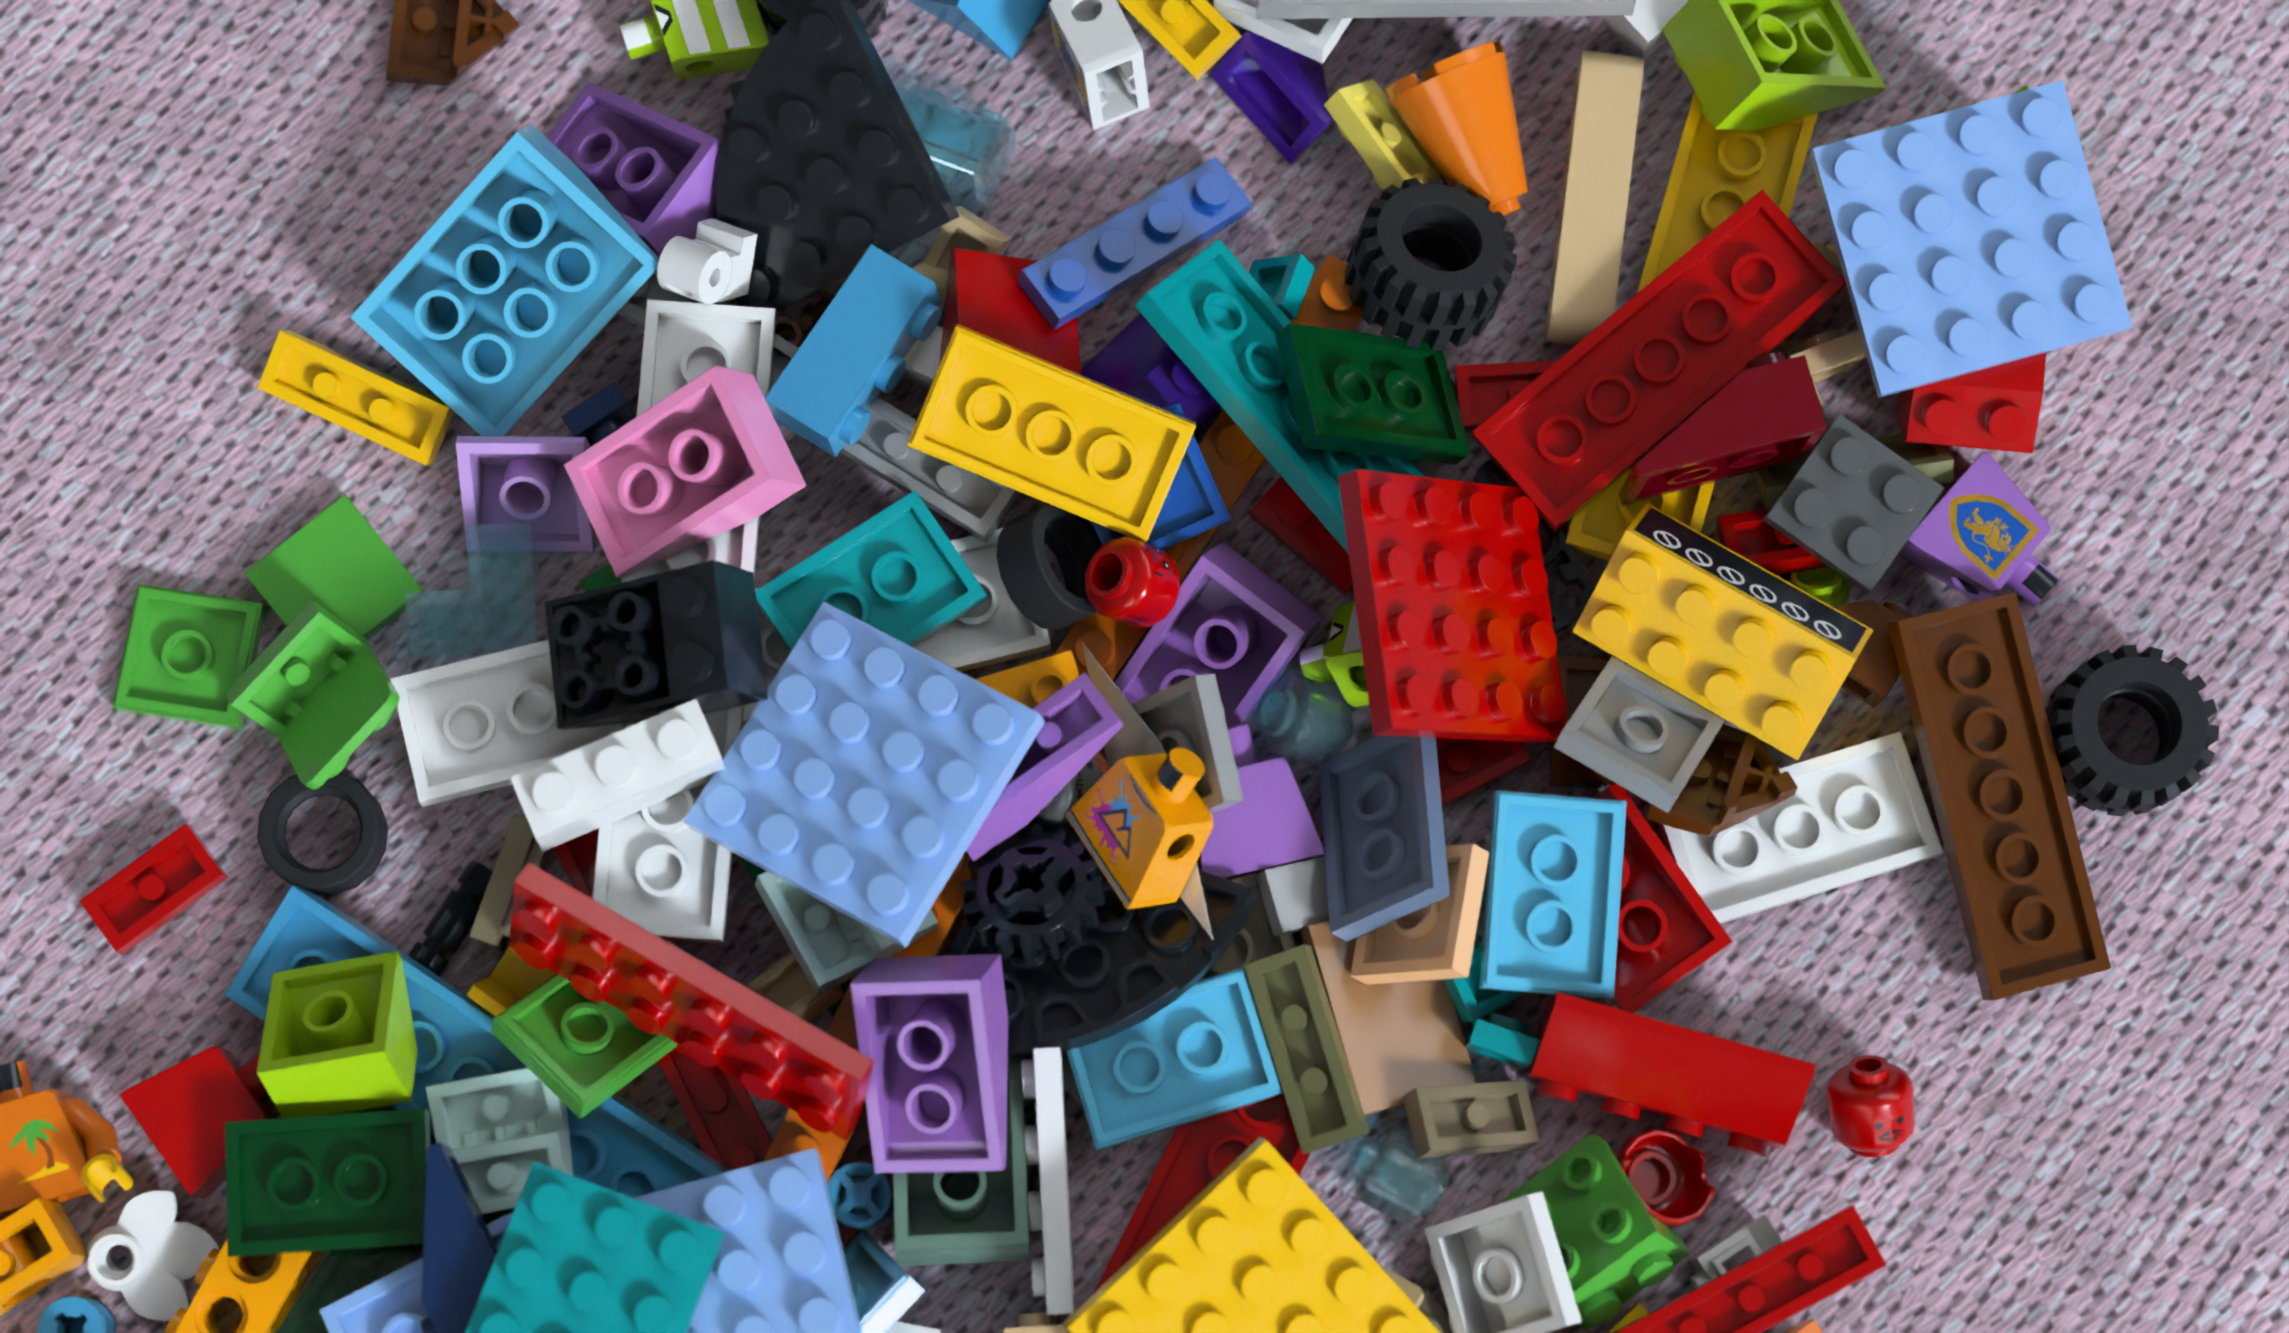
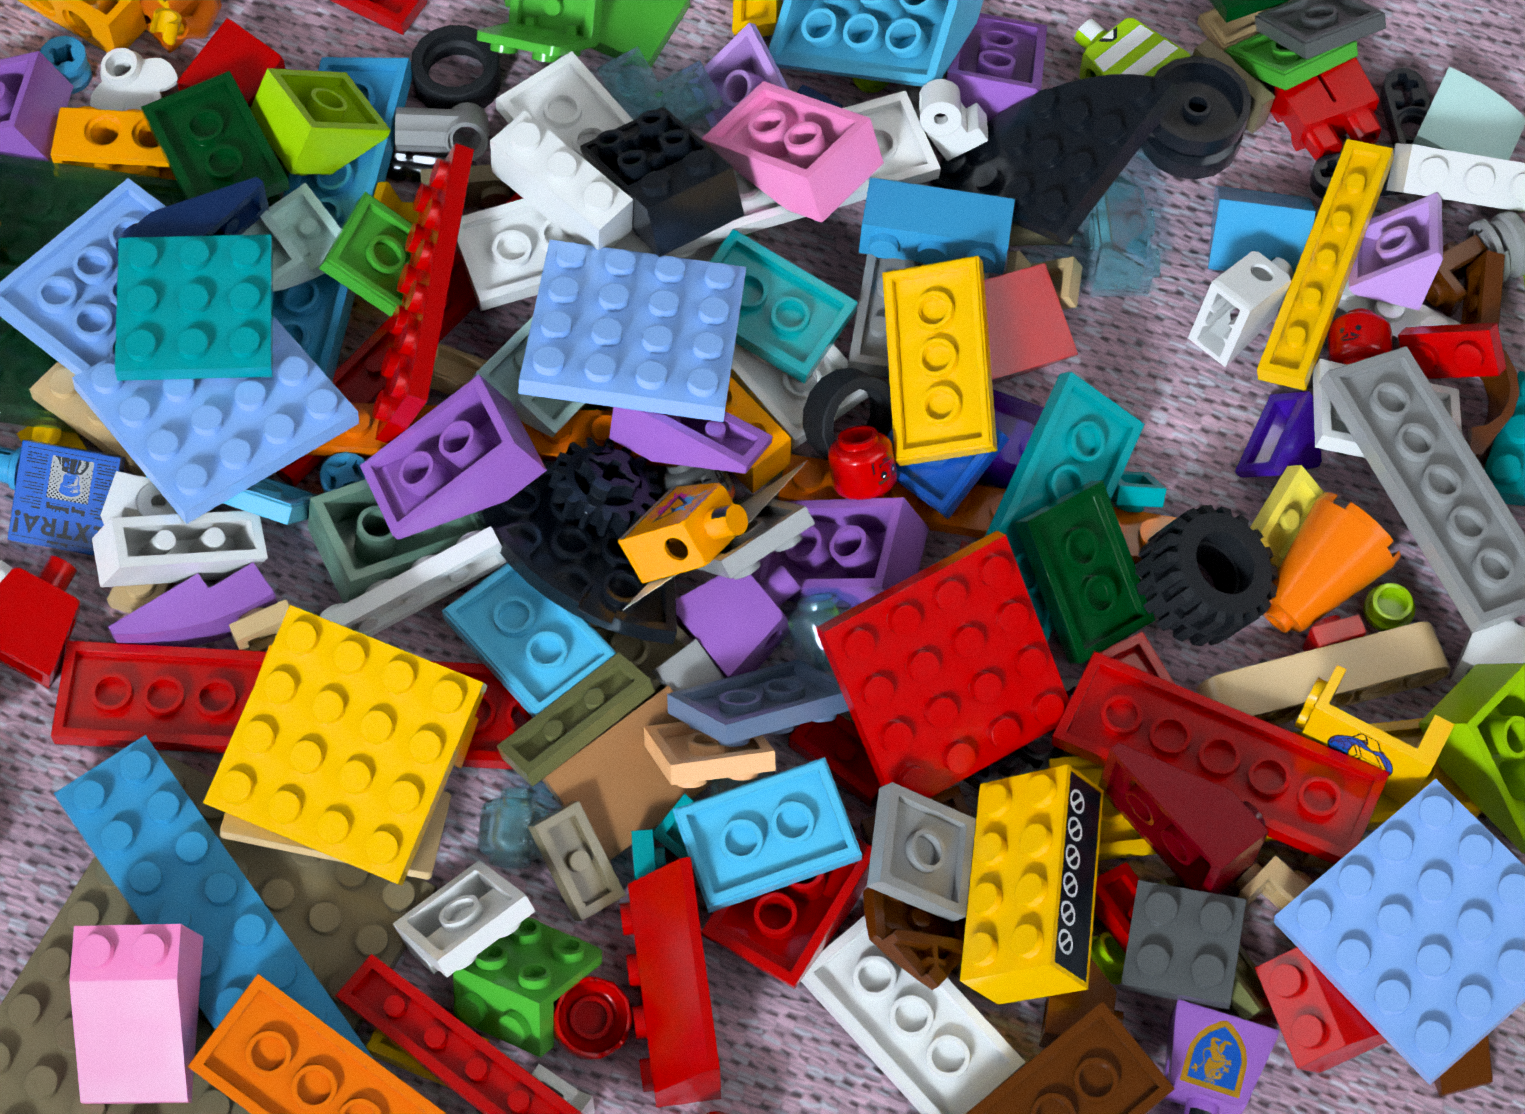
camera: 65 degrees right, 15 degrees down
(420, 866) = (436, 129): none -> light grey piece
(1134, 243) = (1071, 348): blue plate -> none
(1536, 83) = (1389, 607): none -> lime plate
(1550, 163) = (1333, 631): none -> red plate
(1763, 152) = (1362, 741): none -> yellow panel

